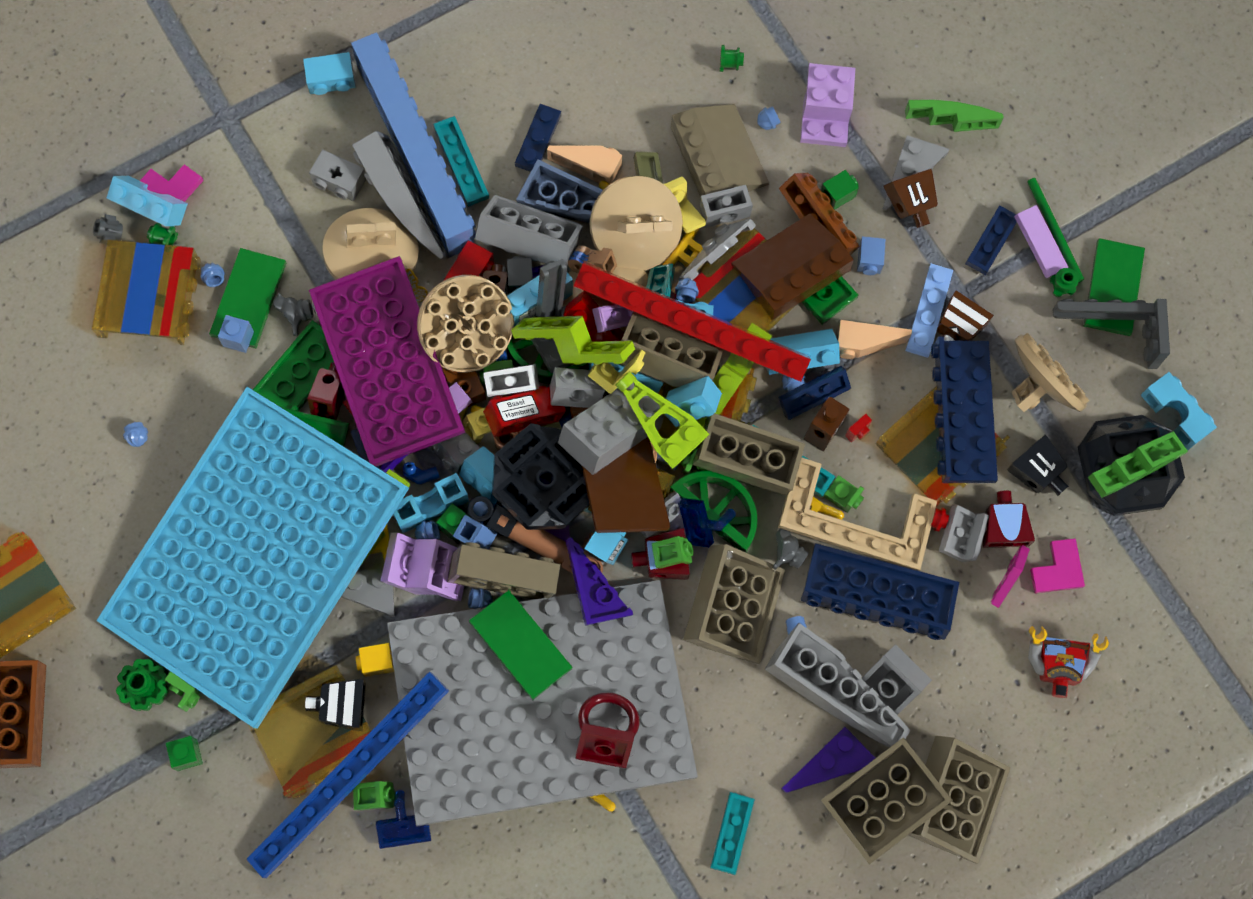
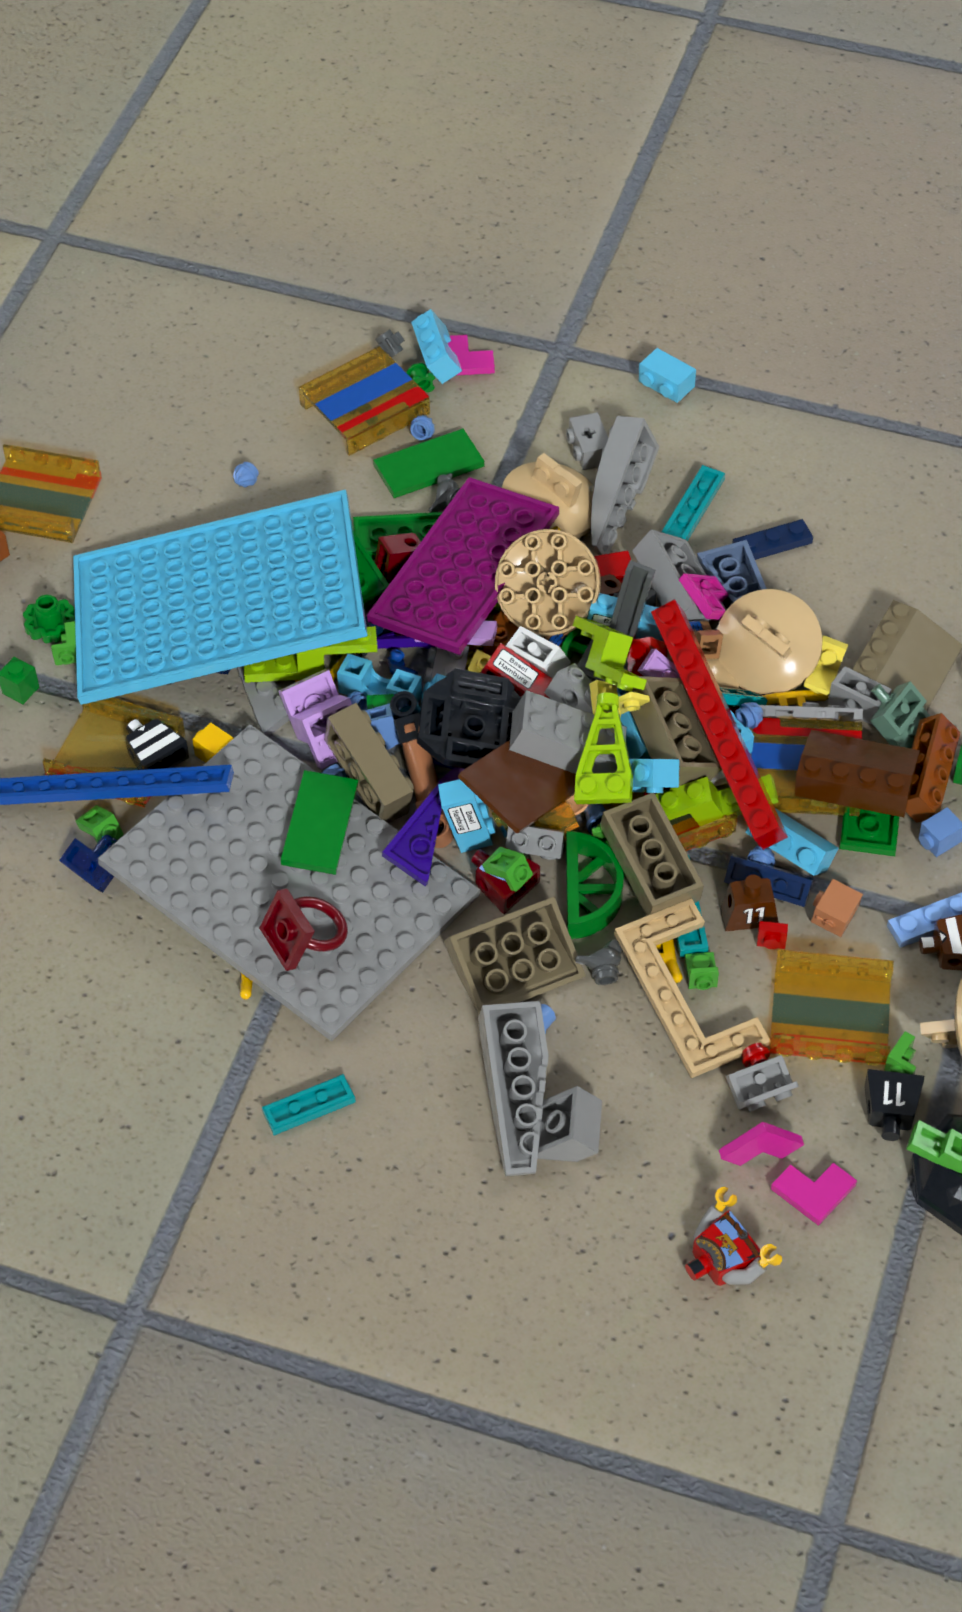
camera: 55 degrees right, 20 degrees down
(235, 334) = (387, 468): medium blue brick -> none
(413, 143) = (669, 457): medium blue brick -> none
(558, 228) = (706, 593): none -> dark pink tile
(589, 161) = (790, 577): light nougat slope -> none
(648, 165) = (835, 623): olive tile -> none
(698, 525) = (554, 875): clear blue plate -> none
(766, 198) = (899, 714): none -> sand green plate
(839, 757) = (457, 1137): dark purple wing -> none
(863, 339) = (855, 872): light nougat slope -> none
(873, 371) = (836, 907): none -> nougat head
(880, 592) = (639, 1059): dark blue bracket -> none
(886, 800) = (447, 1179): dark tan slope -> none
(964, 411) = (870, 992): dark blue bracket -> none
(975, 787) = (509, 1257): dark tan slope -> none
(1007, 523) = (808, 1112): dark red torso -> none
(1012, 428) = (901, 1055): none -> bright green bracket

